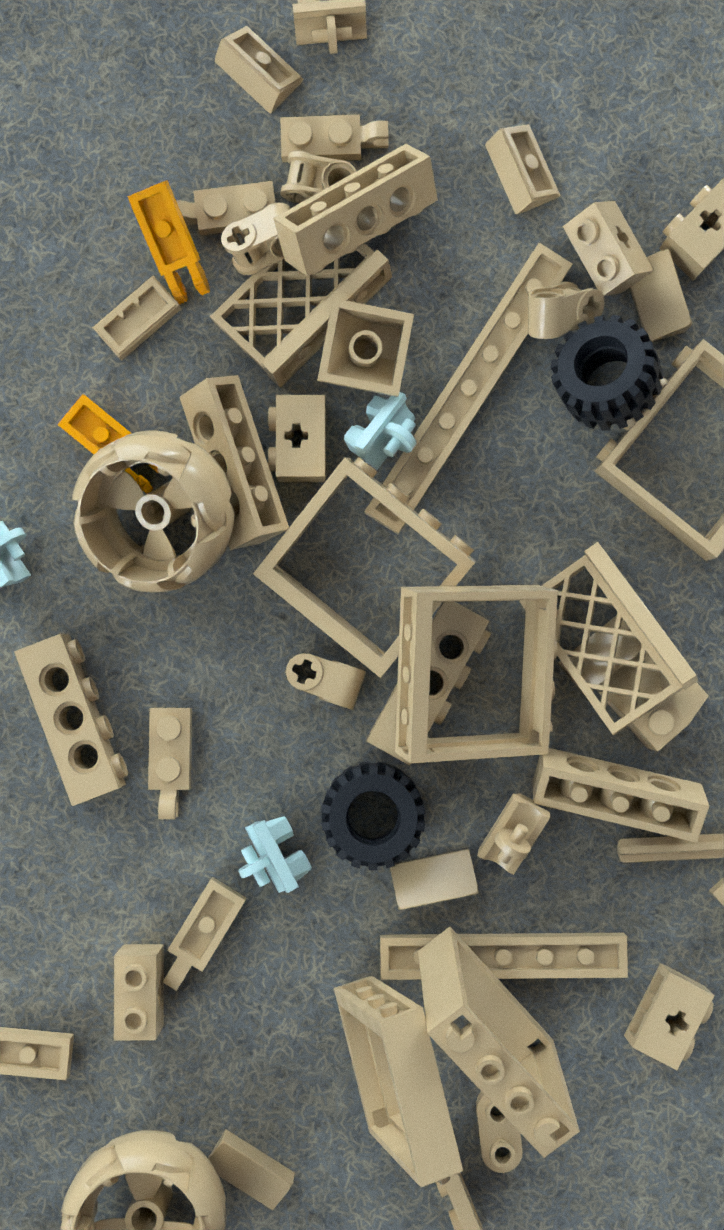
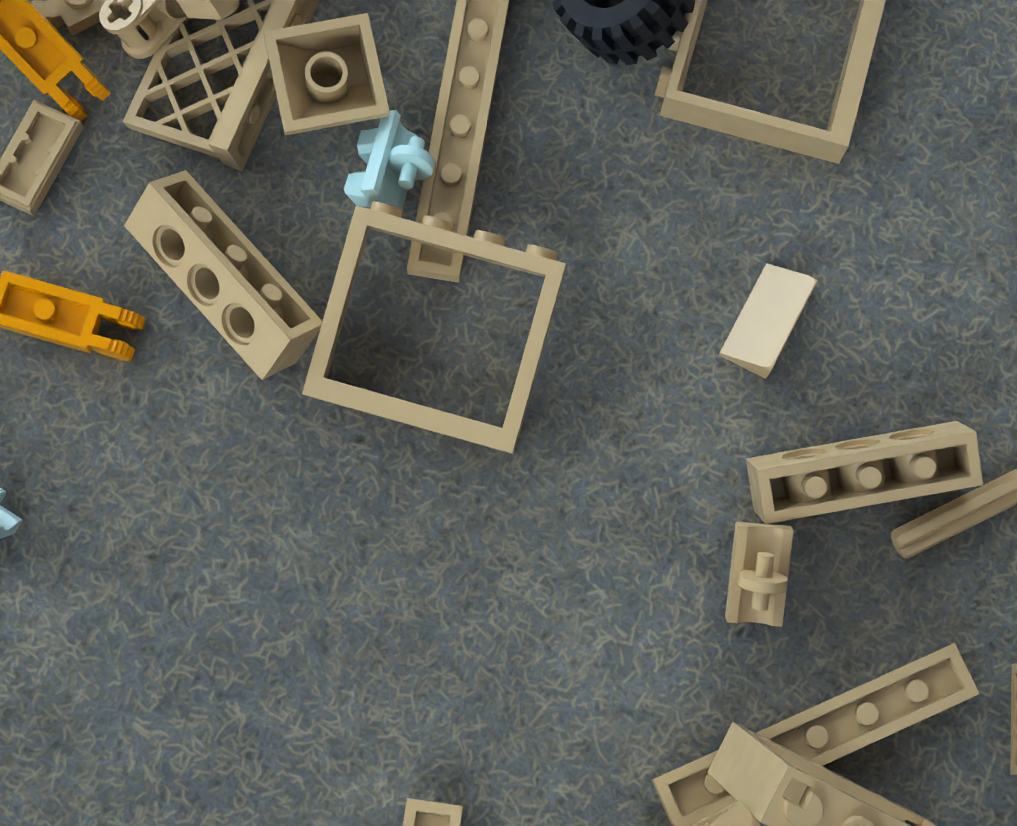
camera: 25 degrees left, 10 degrees down
(38, 665) = (78, 620): tan brick -> none
(169, 756) = (290, 668): tan plate -> none
(195, 483) = (78, 359): tan wheel -> none
(282, 870) = (468, 740): light aqua hips -> none
(301, 414) = (285, 187): tan brick -> none
(332, 682) = (452, 486): tan piece -> none
(383, 849) = (586, 579): black tyre -> none
(414, 675) = (551, 416): tan window -> none
(434, 879) = (686, 678): tan slope -> none
(470, 631) = (568, 354): tan brick -> none
(642, 626) = (798, 259): tan fence -> none
(666, 719) = (848, 342): tan slope -> none

